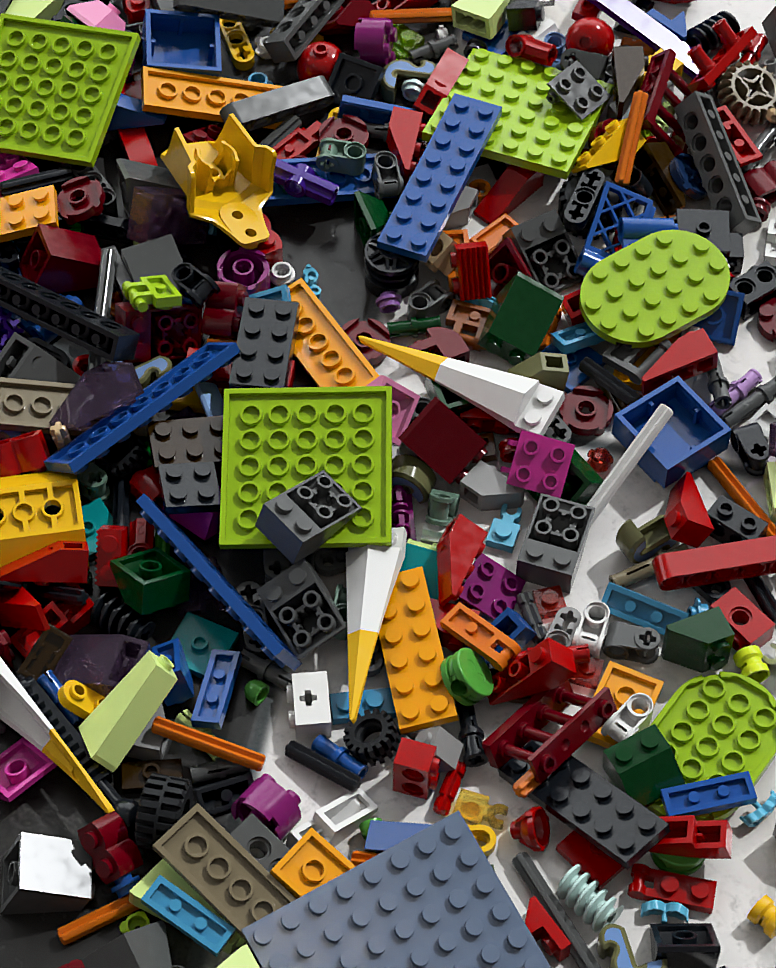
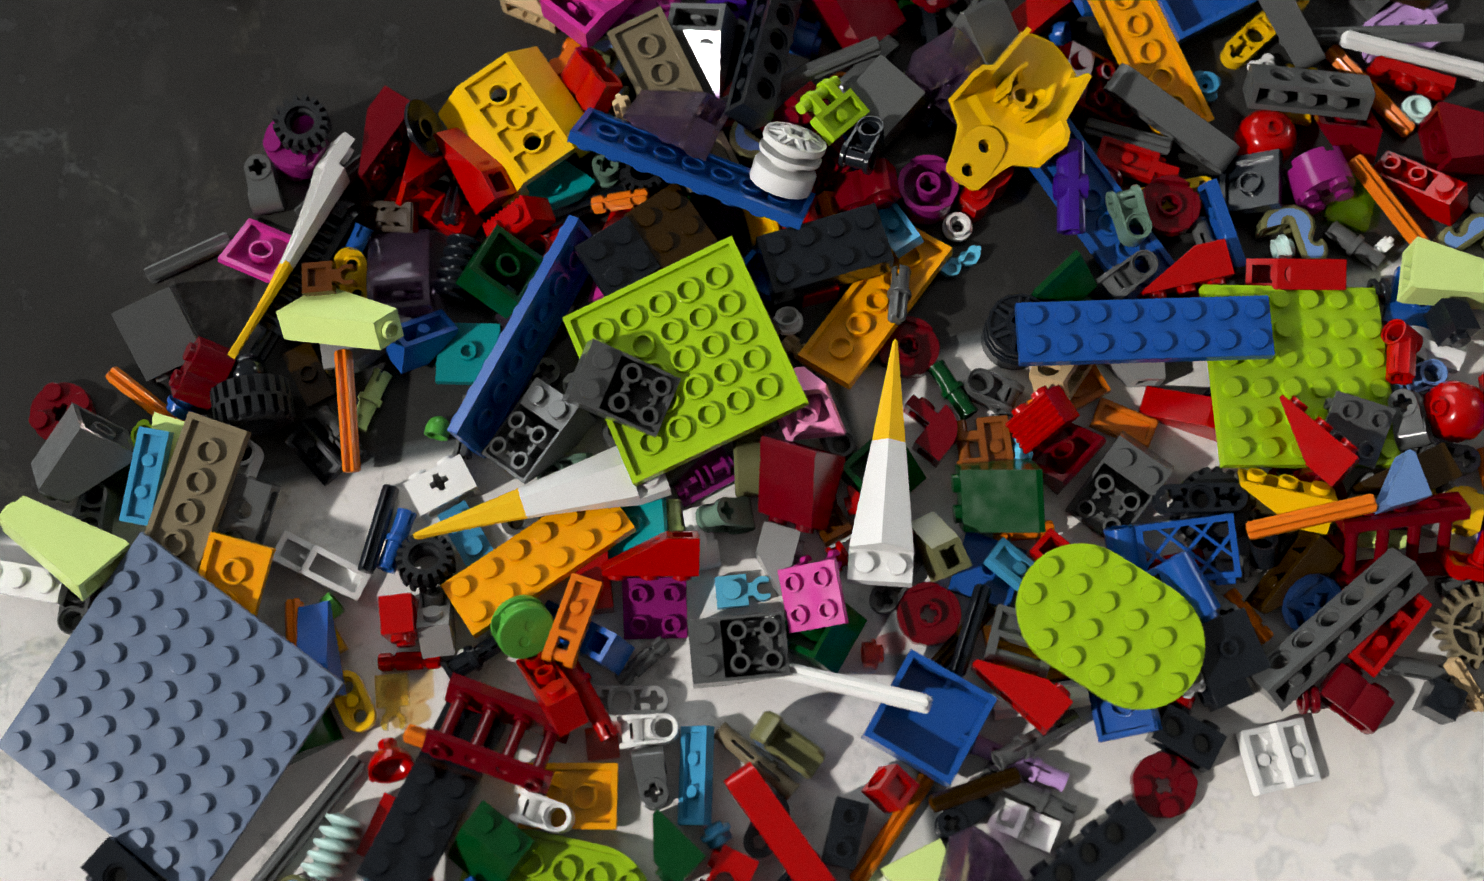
camera: 65 degrees right, 20 degrees up
(80, 712) = (322, 277): none -> reddish brown plate
(135, 475) = (619, 200): none -> orange axle
(158, 149) = (1060, 33): none -> blue hinge
(179, 342) = (787, 160): none -> white wheel
(210, 398) = (747, 230): light blue slope -> none
(216, 689) = (415, 391): blue plate -> none
(270, 804) = (299, 498): magenta brick -> none
(324, 318) = (899, 294): none -> dark grey axle
(389, 302) = (972, 350): medium lavender plate -> none
(482, 185) = (1185, 376): orange bush -> none
(544, 928) = (288, 811): red slope -> none
(548, 601) = (669, 672): clear red plate -> none
(582, 110) = (1319, 449): none -> red slope
(633, 72) = (1403, 484): none -> medium blue slope
(686, 513) = (828, 774): red slope -> none
(713, 479) = (890, 788): none -> red brick
(739, 424) = (974, 789): none -> dark brown axle

